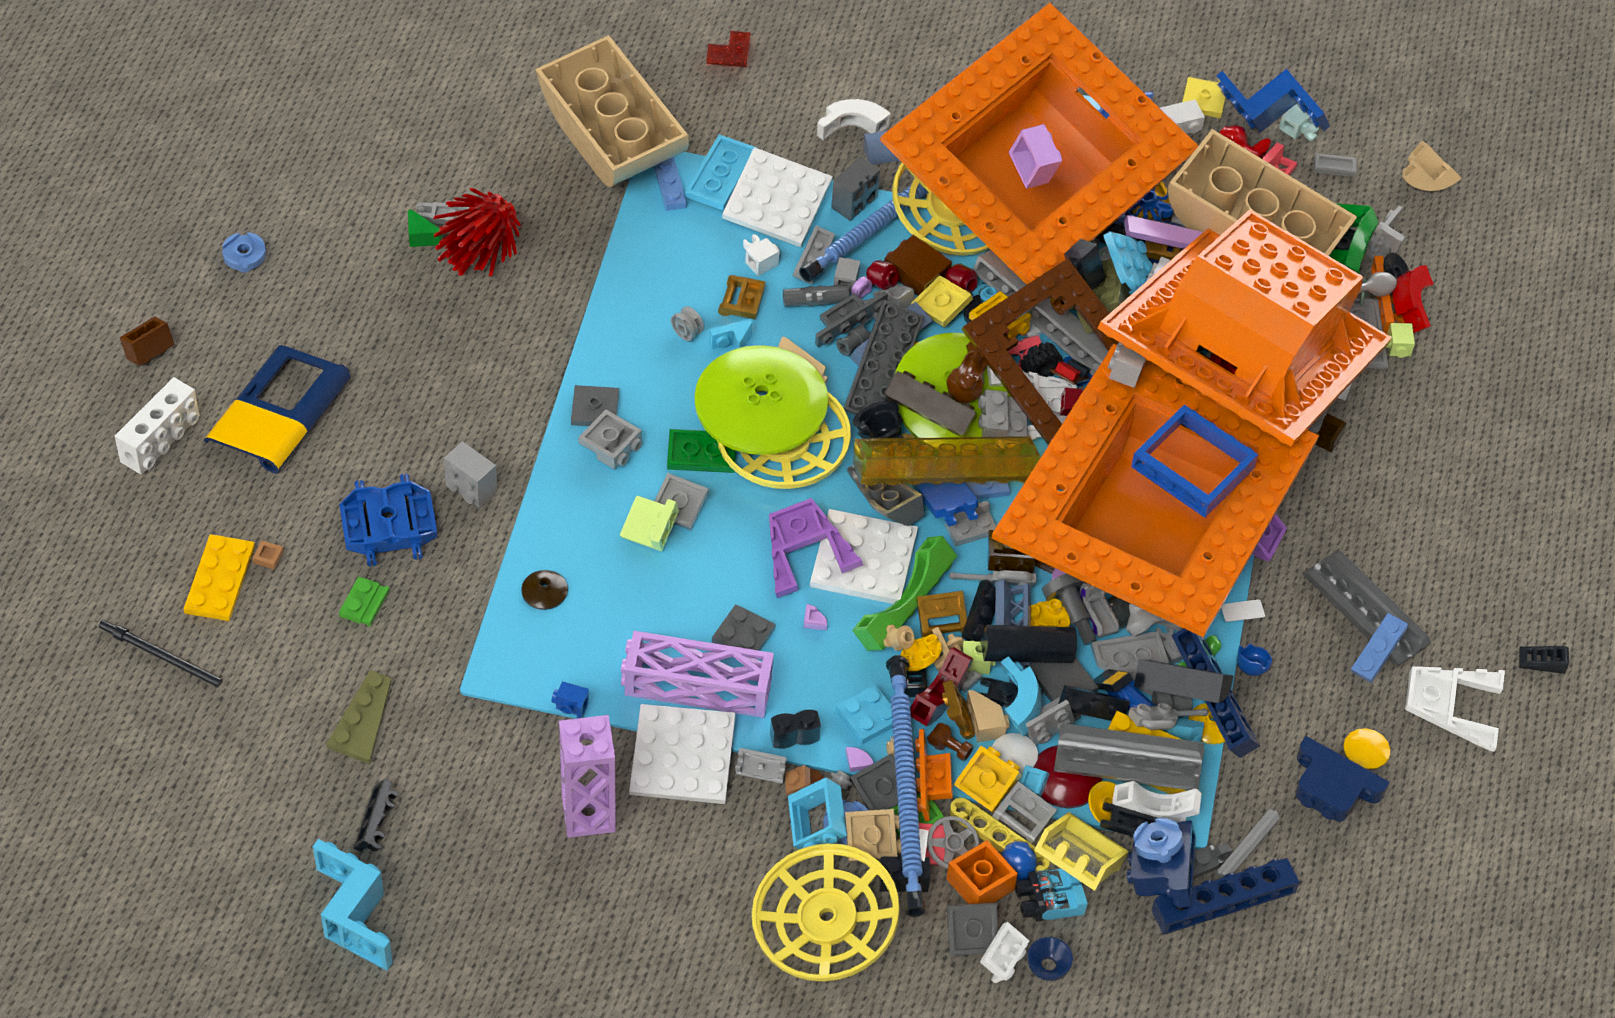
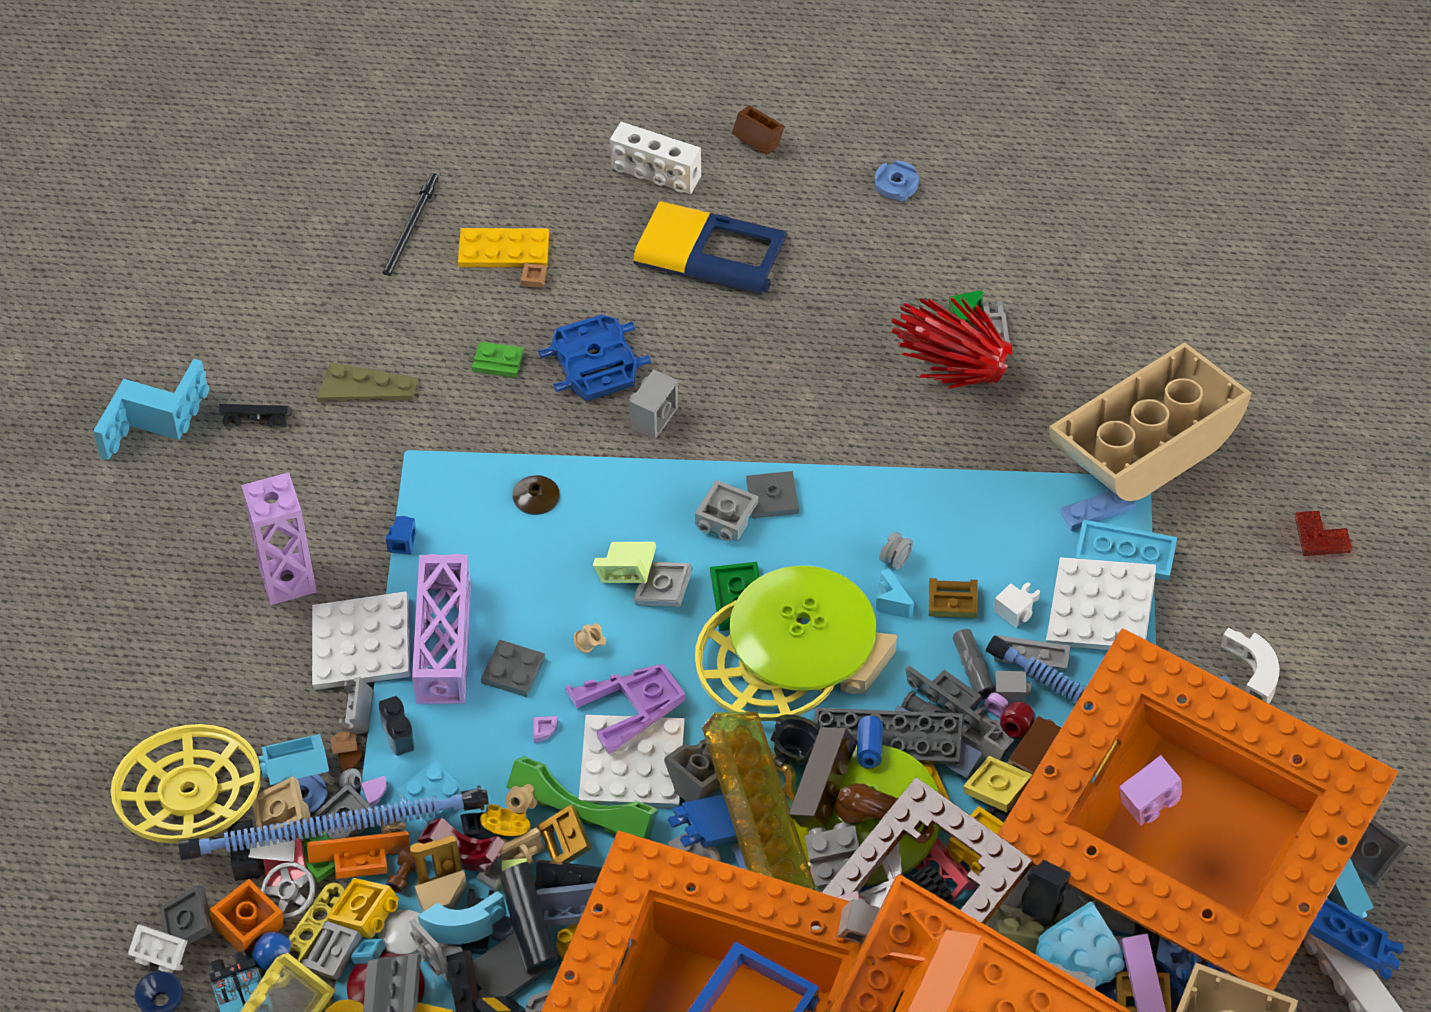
camera: 85 degrees right, 0 degrees up
(729, 565) = (589, 638): none -> tan brick
(891, 363) = (869, 742): none -> blue brick

